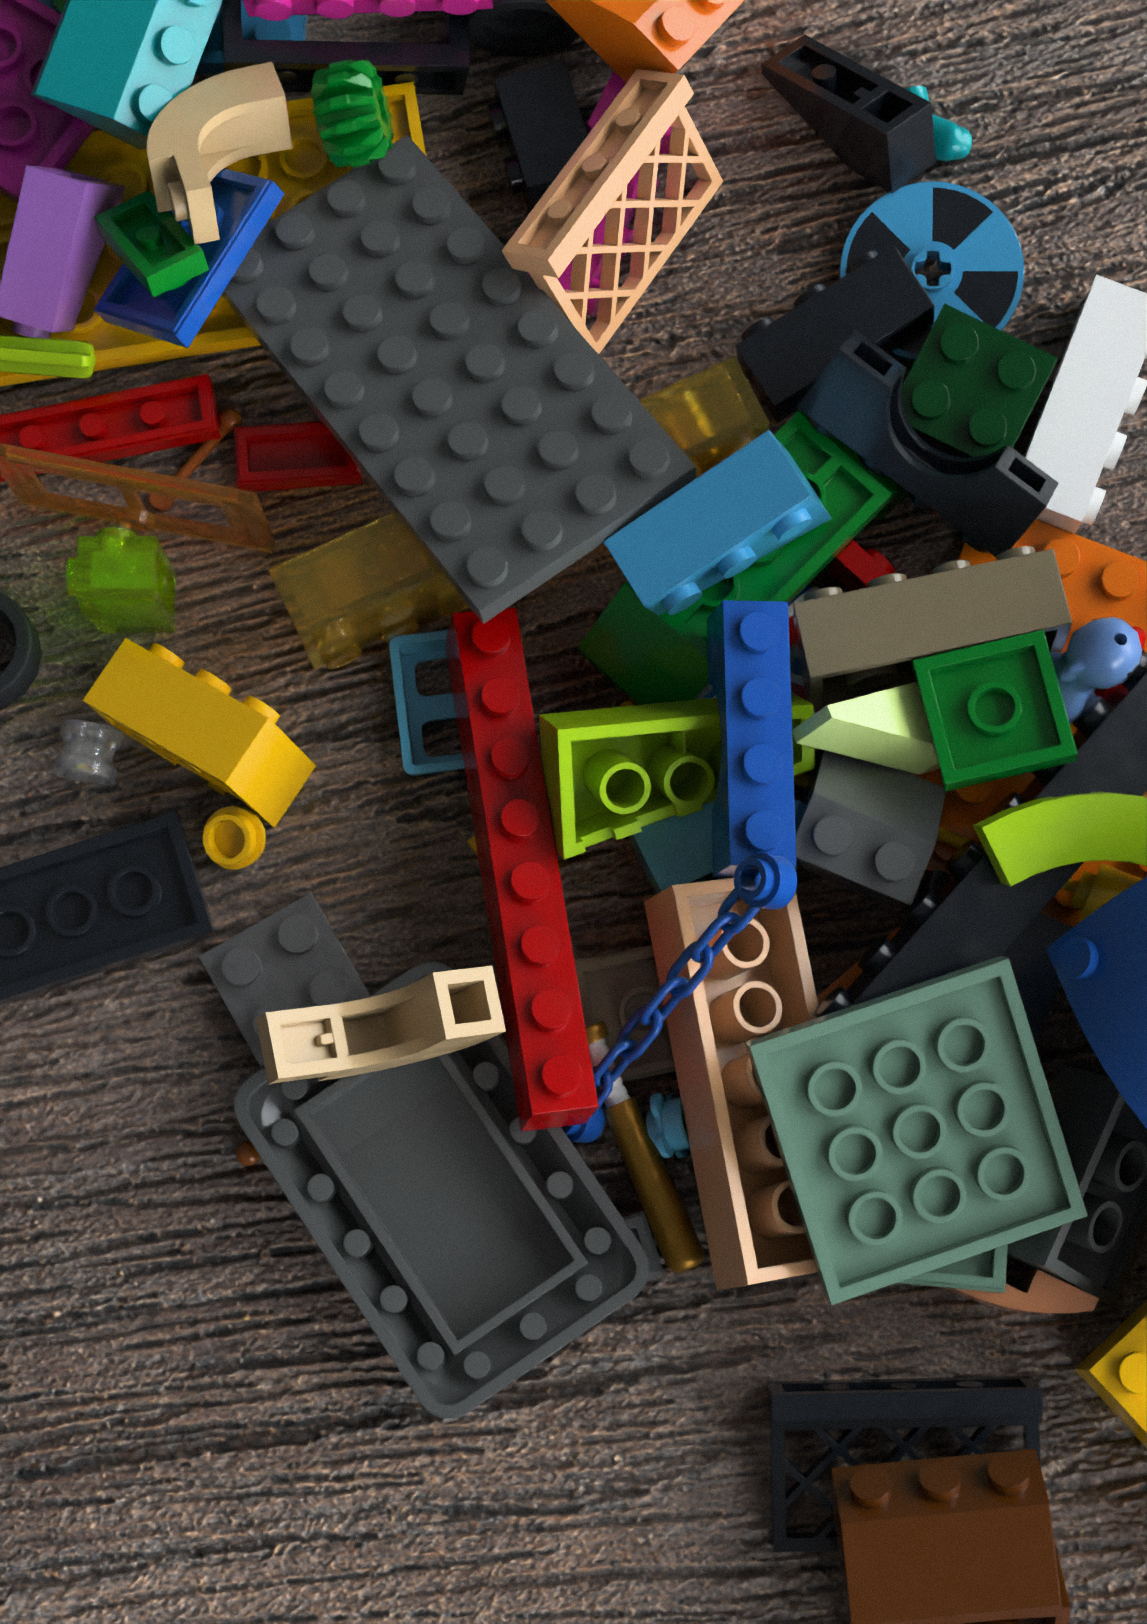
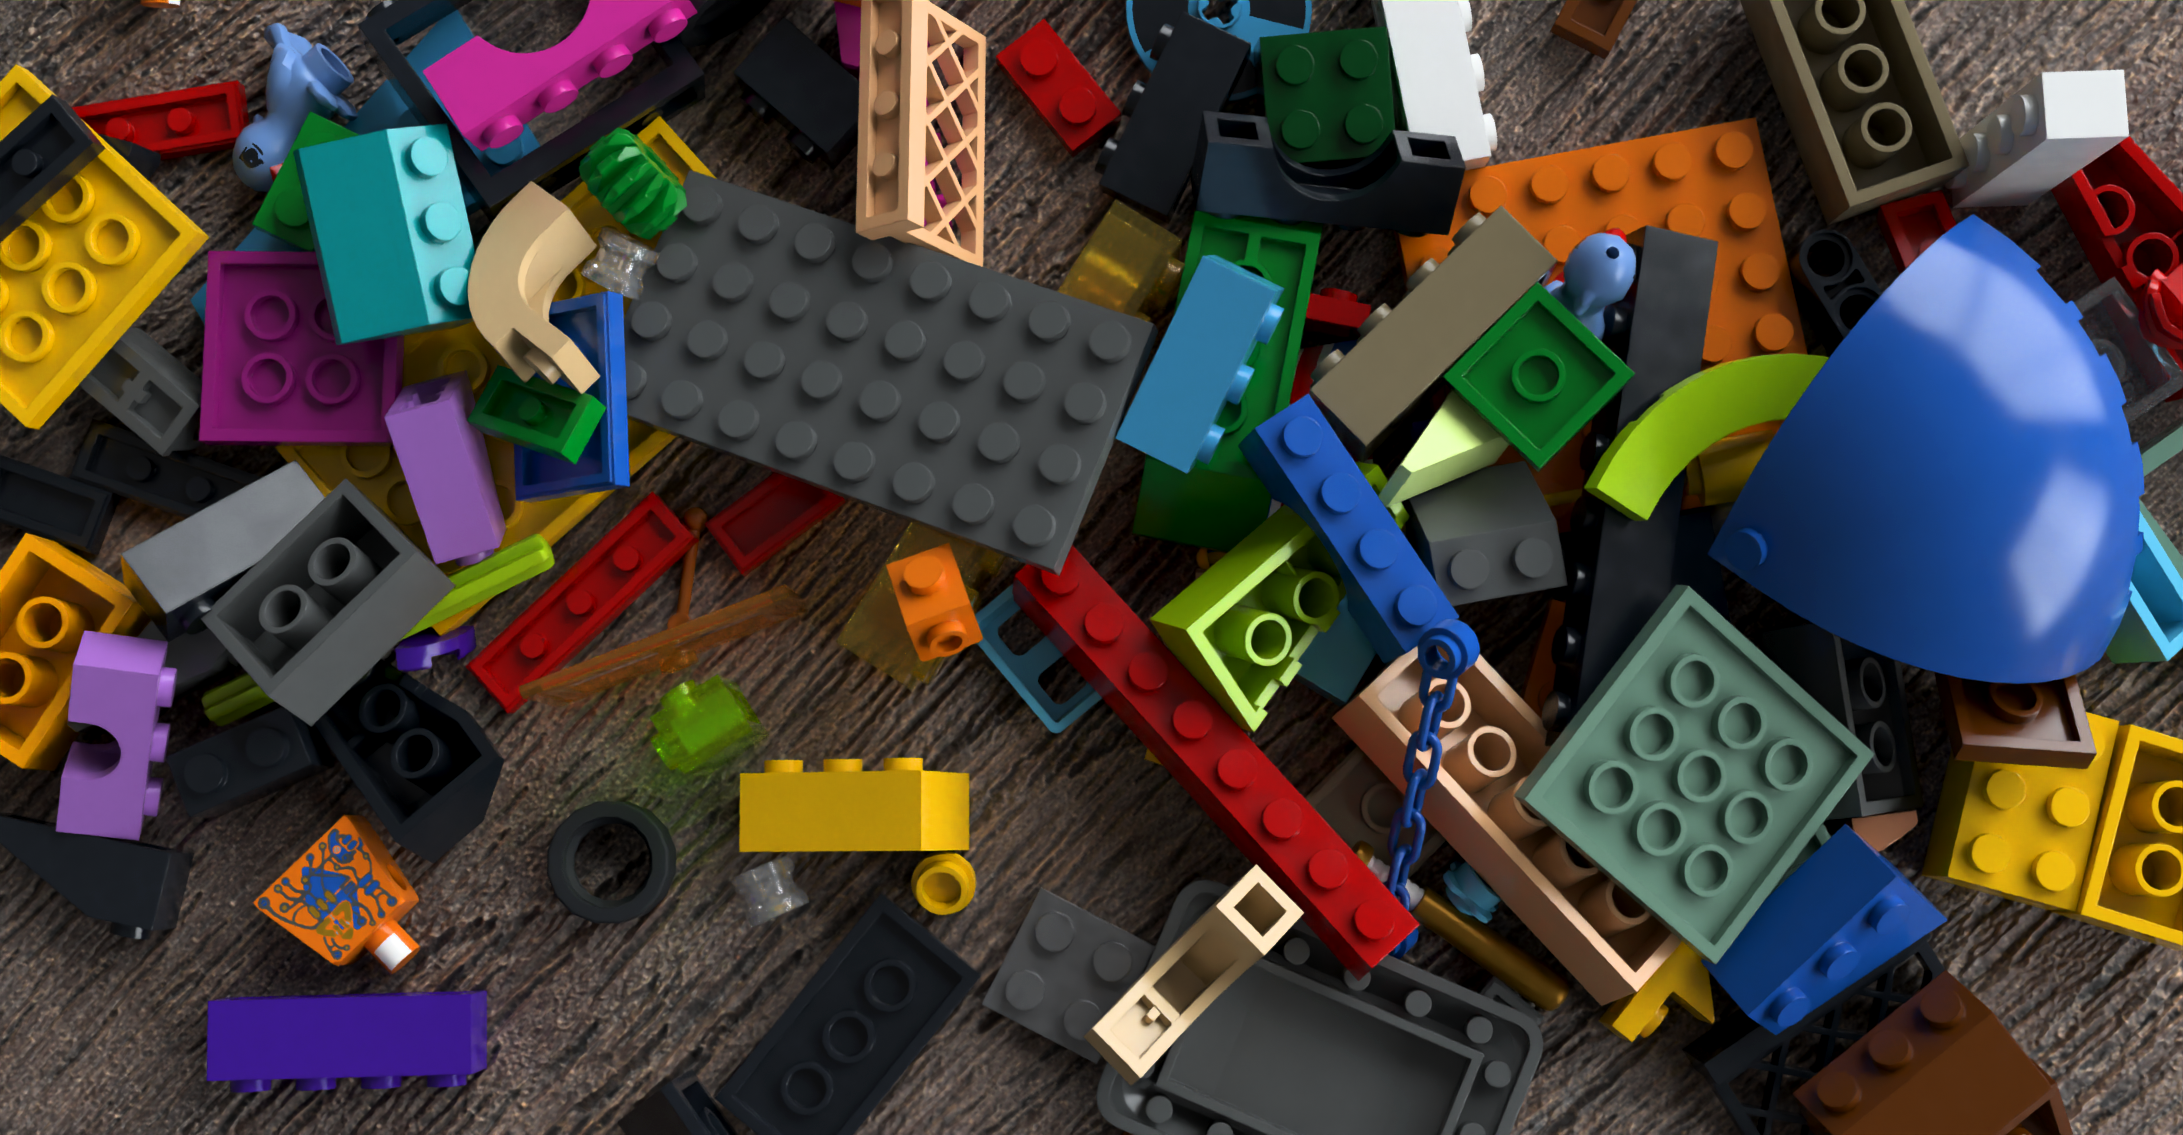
camera: 35 degrees left, 5 degrees up
(301, 171) = (620, 263): none -> clear wheel
(366, 585) = (934, 603): none -> orange bracket
(756, 257) = (1058, 88): none -> red plate
(800, 1306) = (1681, 978): none -> yellow slope
(946, 1344) = (1822, 932): none -> blue wedge

